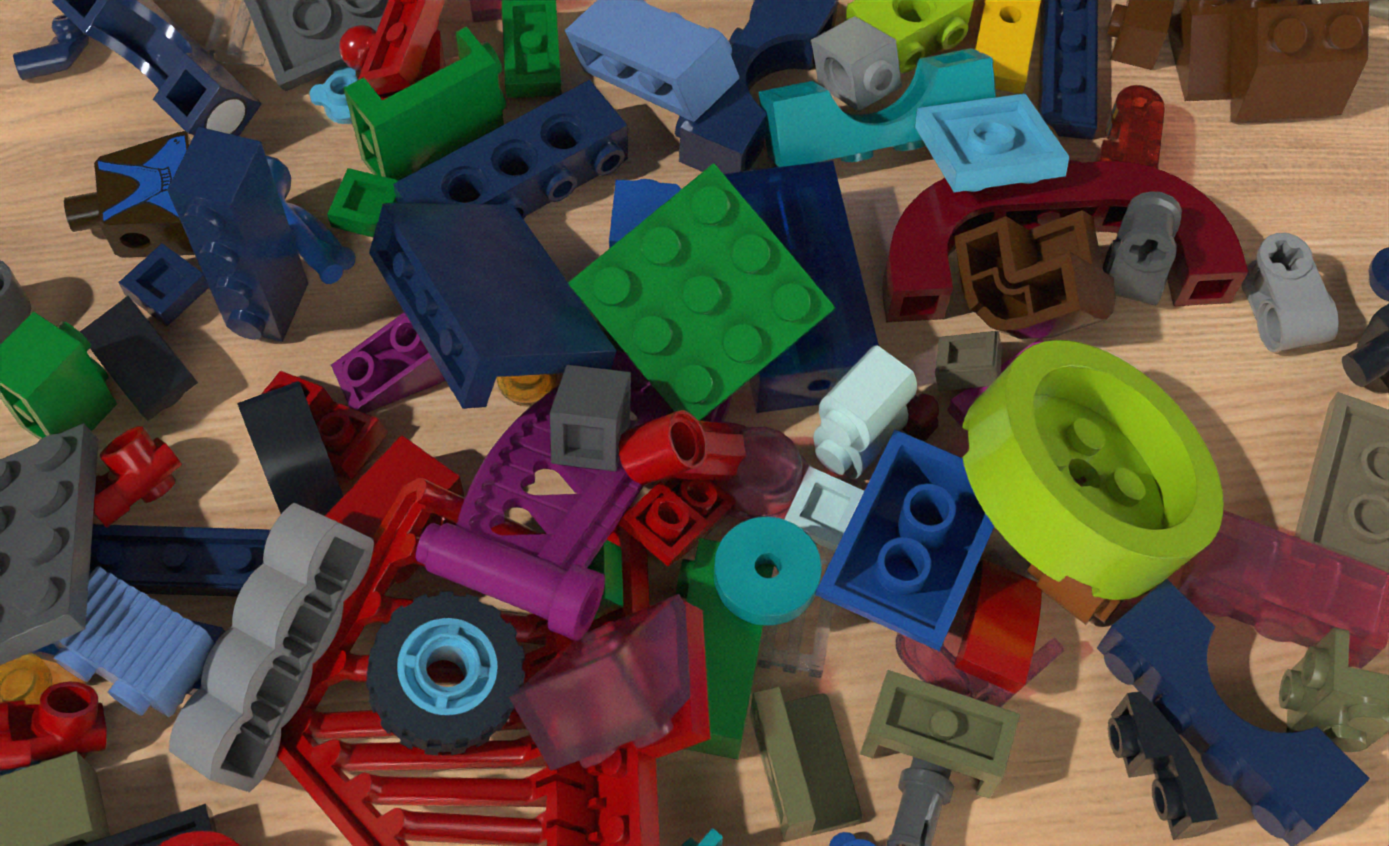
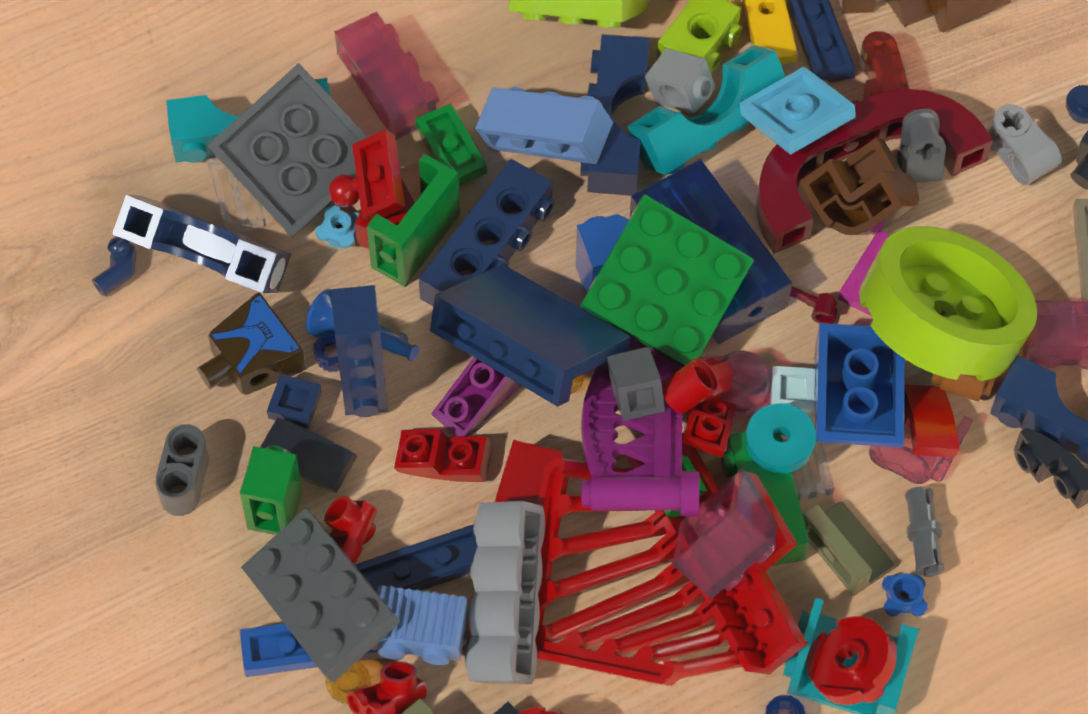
camera: 20 degrees left, 0 degrees up
(291, 449) = (449, 477): black slope -> none
(360, 201) = (398, 298): green plate -> none
(454, 631) = (639, 548): black wheel -> none
(863, 412) = (793, 320): light aqua brick -> none
(942, 729) = (920, 493): olive panel -> none
(968, 360) = (840, 261): dark tan tile -> none

